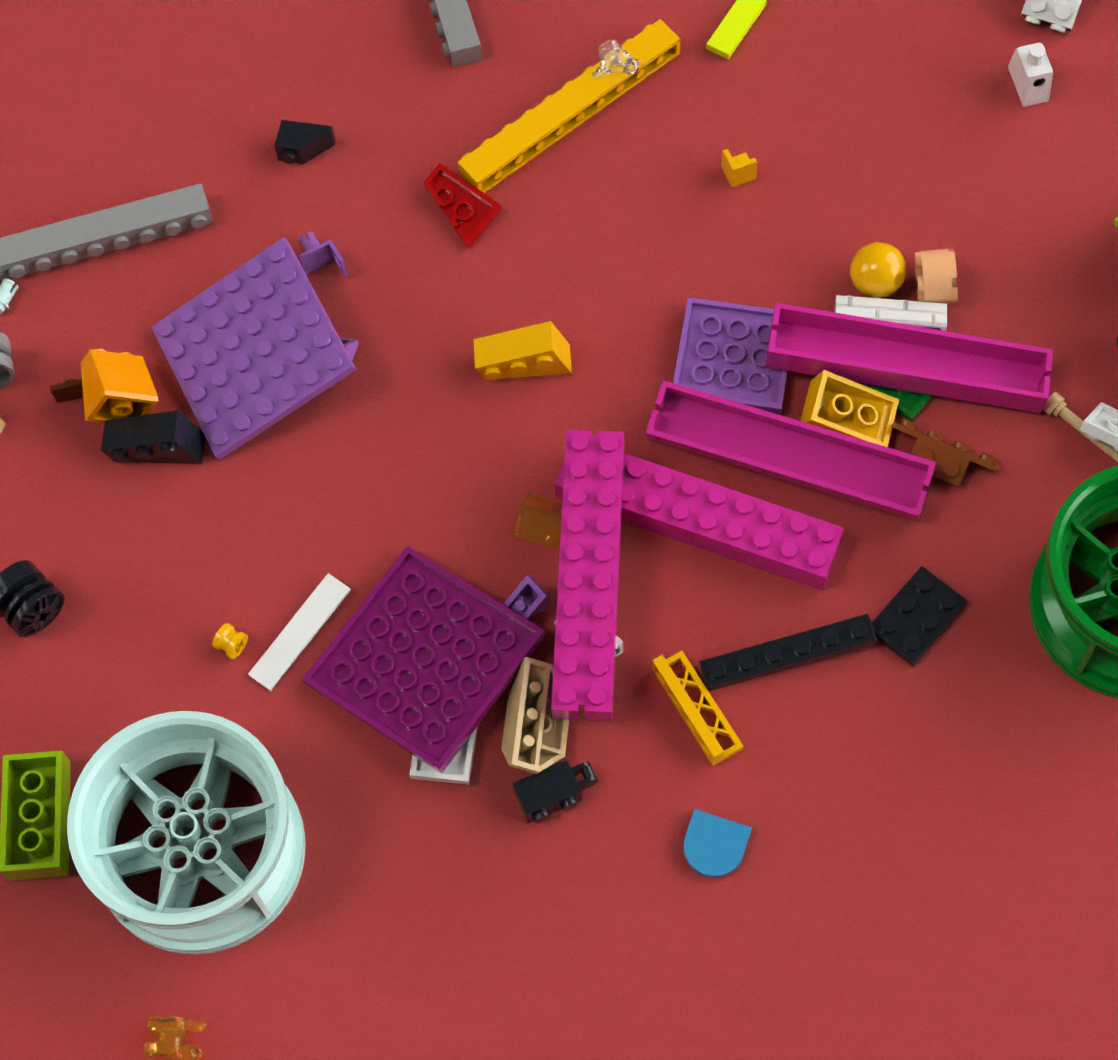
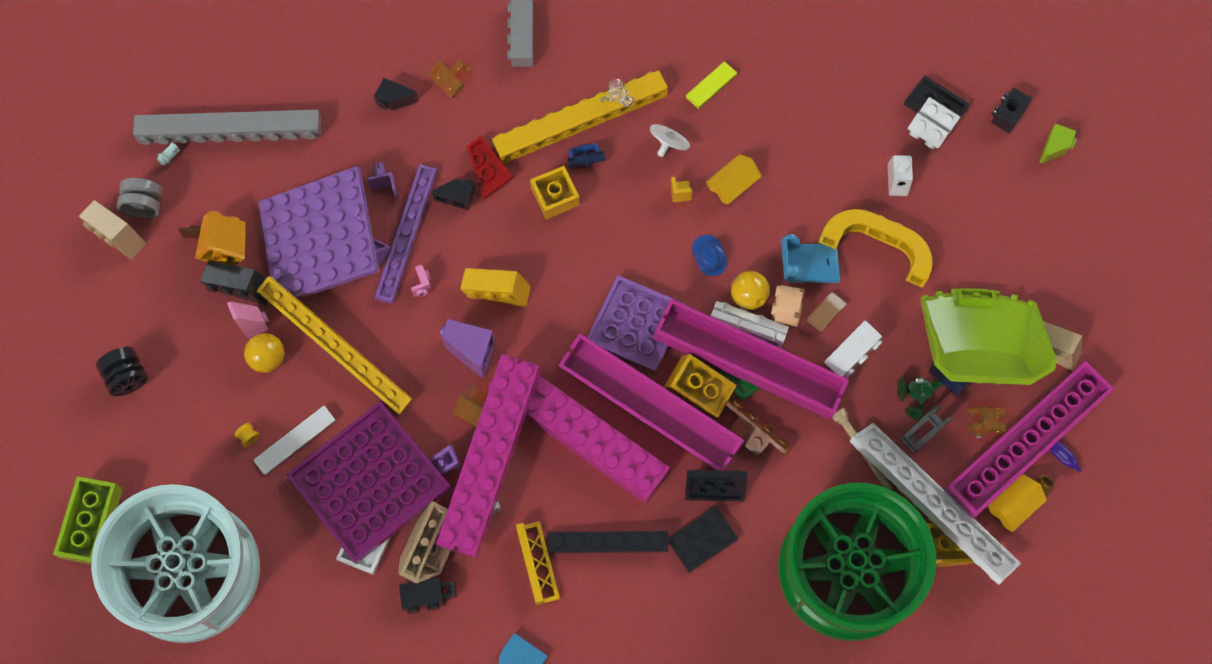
camera: 10 degrees right, 5 degrees up
(187, 482) = (248, 318): none -> bright pink slope
(222, 523) = (264, 353): none -> yellow piece
(320, 487) = (335, 345): none -> yellow plate
(368, 101) = (446, 77): none -> clear yellow plate
(373, 320) = (406, 234): none -> medium lavender tile
(419, 370) = (424, 277): none -> bright pink bracket
(427, 248) = (455, 193): none -> black slope
(509, 438) = (469, 344): none -> medium lavender slope
(567, 211) = (555, 192): none -> yellow brick
(587, 147) = (581, 149): none -> blue piece
(595, 159) = (586, 159): none -> dark blue pin
(698, 103) = (668, 138): none -> white shield
(805, 242) = (709, 255): none -> blue piece
(807, 134) = (734, 178): none -> yellow piece
(915, 536) = (716, 485): none -> black plate
(945, 215) = (808, 262): none -> dark azure door
(990, 275) = (826, 312): none -> medium nougat slope
(1041, 152) = (885, 231): none -> yellow arch
(1047, 309) = (854, 350): none -> white wedge

